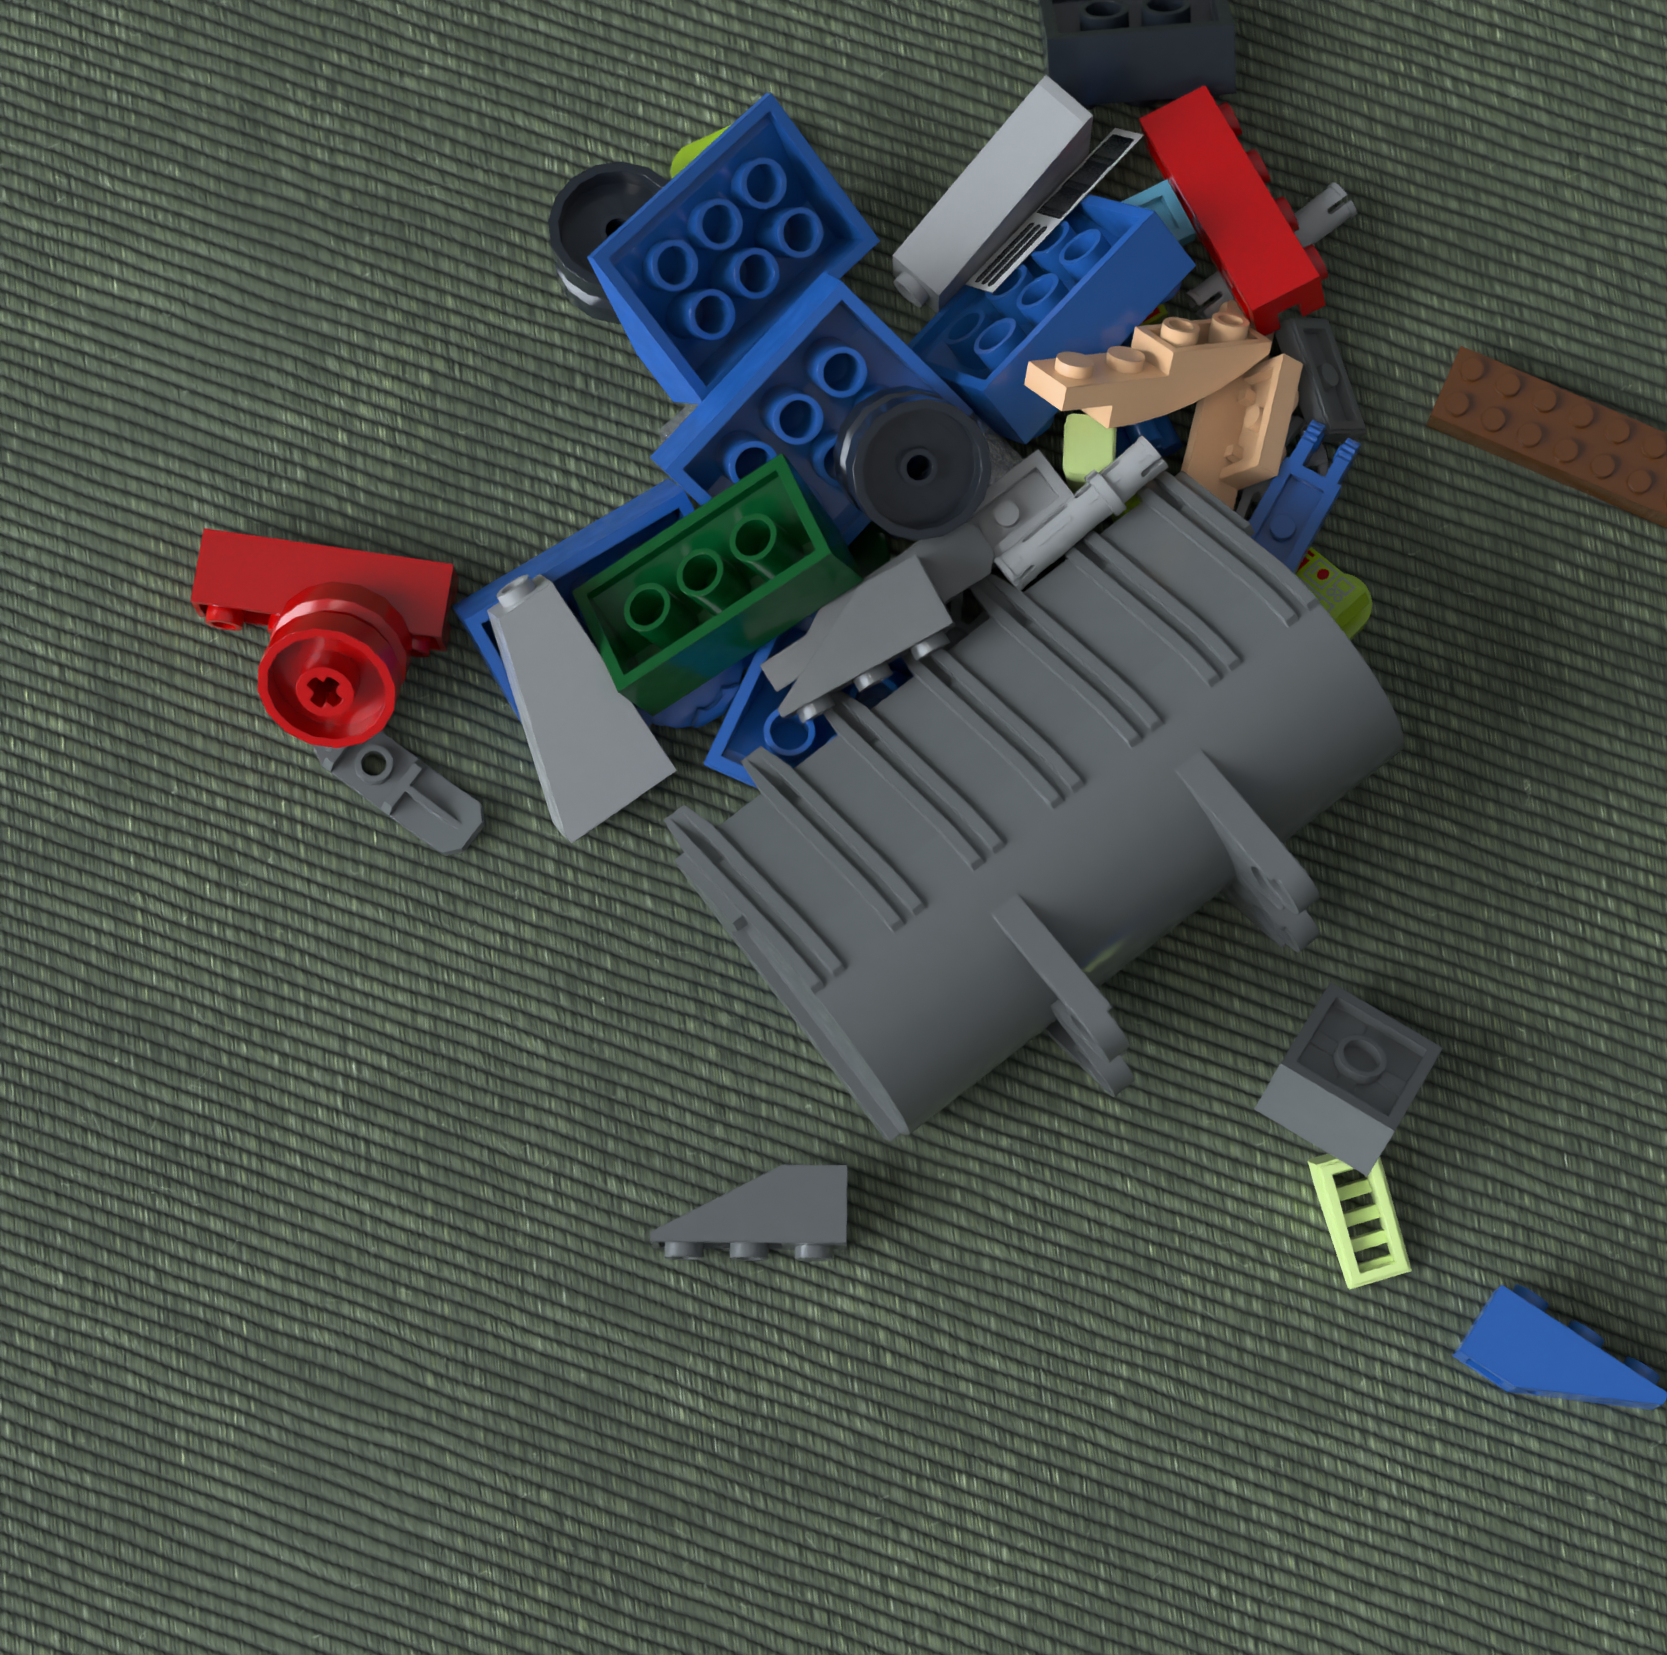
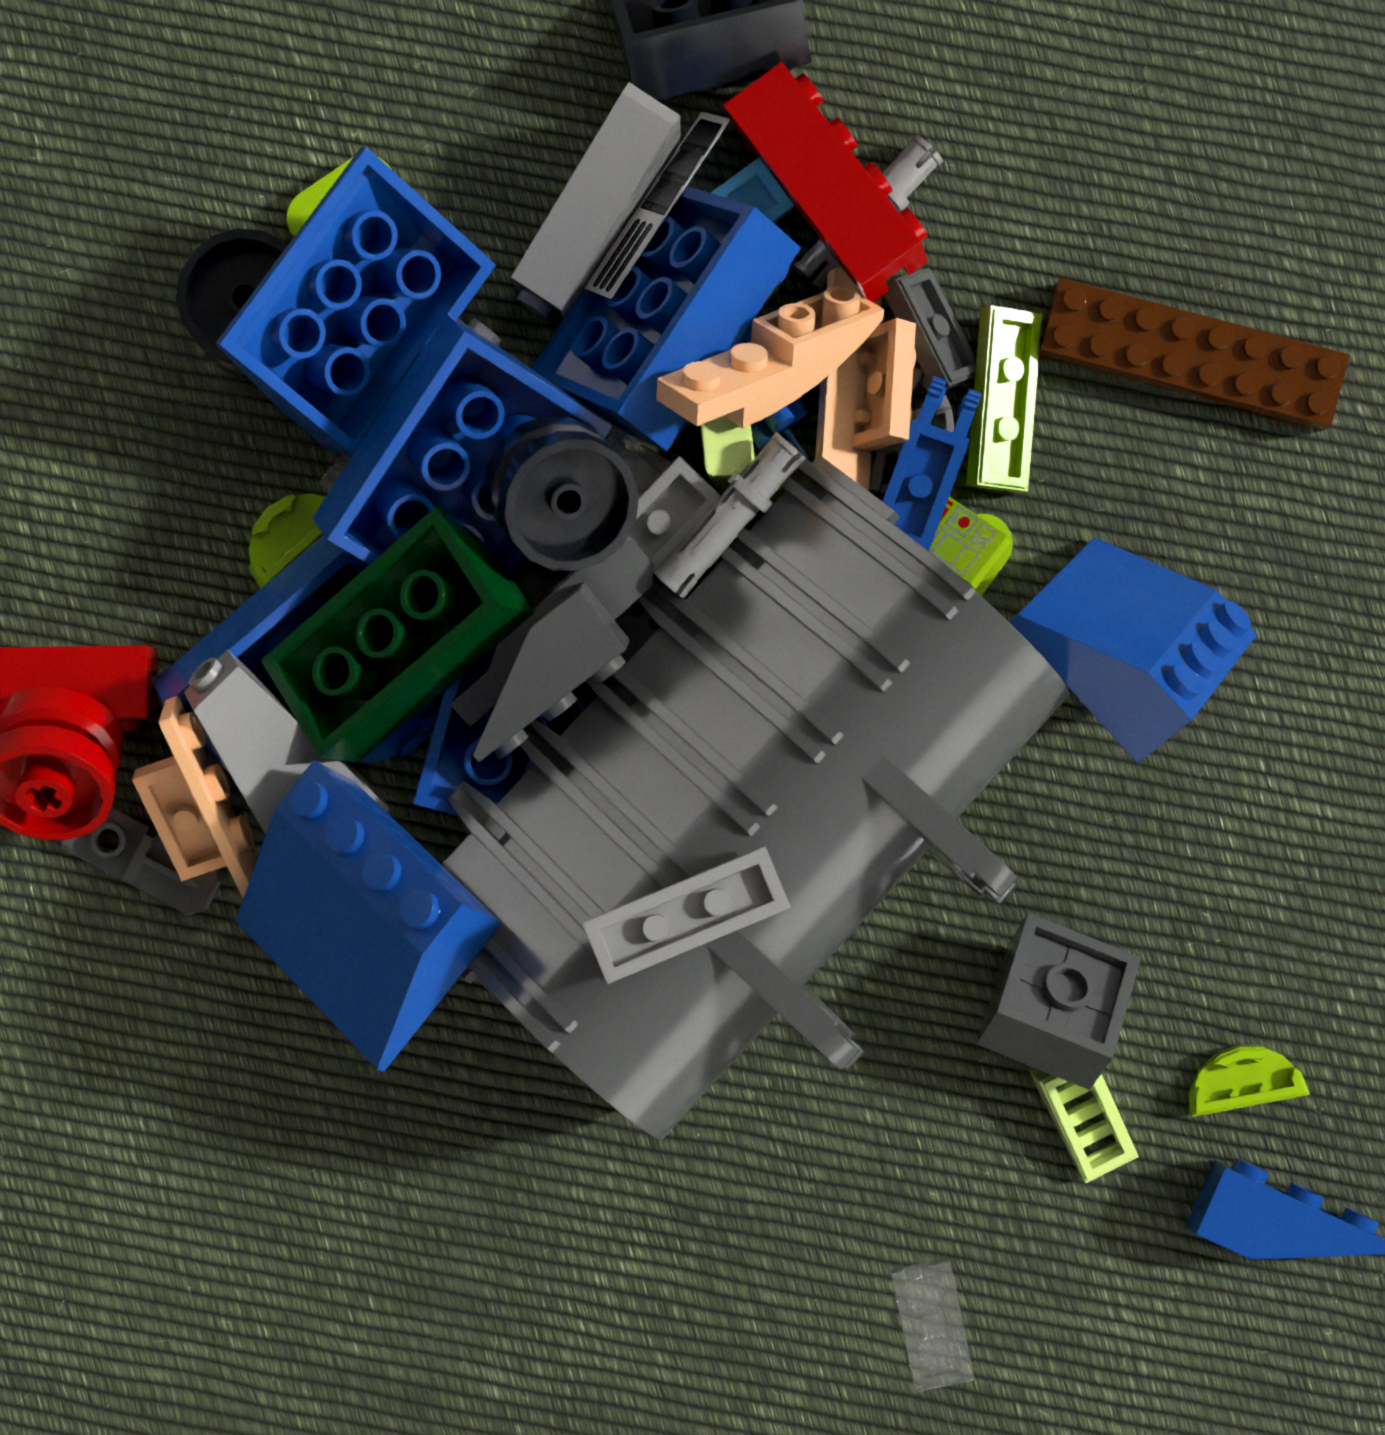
camera: 15 degrees left, 10 degrees up
(472, 744) = (192, 805): none -> light nougat bracket
(613, 480) = (283, 535): none -> lime tile
(631, 850) = (359, 913): none -> blue slope
(780, 1210) = (556, 1200): dark grey slope -> none
(975, 870) = (686, 914): none -> light grey plate
(1162, 1411) = (932, 1325): none -> clear plate
(1387, 462) = (1006, 409): none -> tile
(1485, 712) = (1135, 641): none -> blue slope
(1538, 1206) = (1242, 1079): none -> lime tile

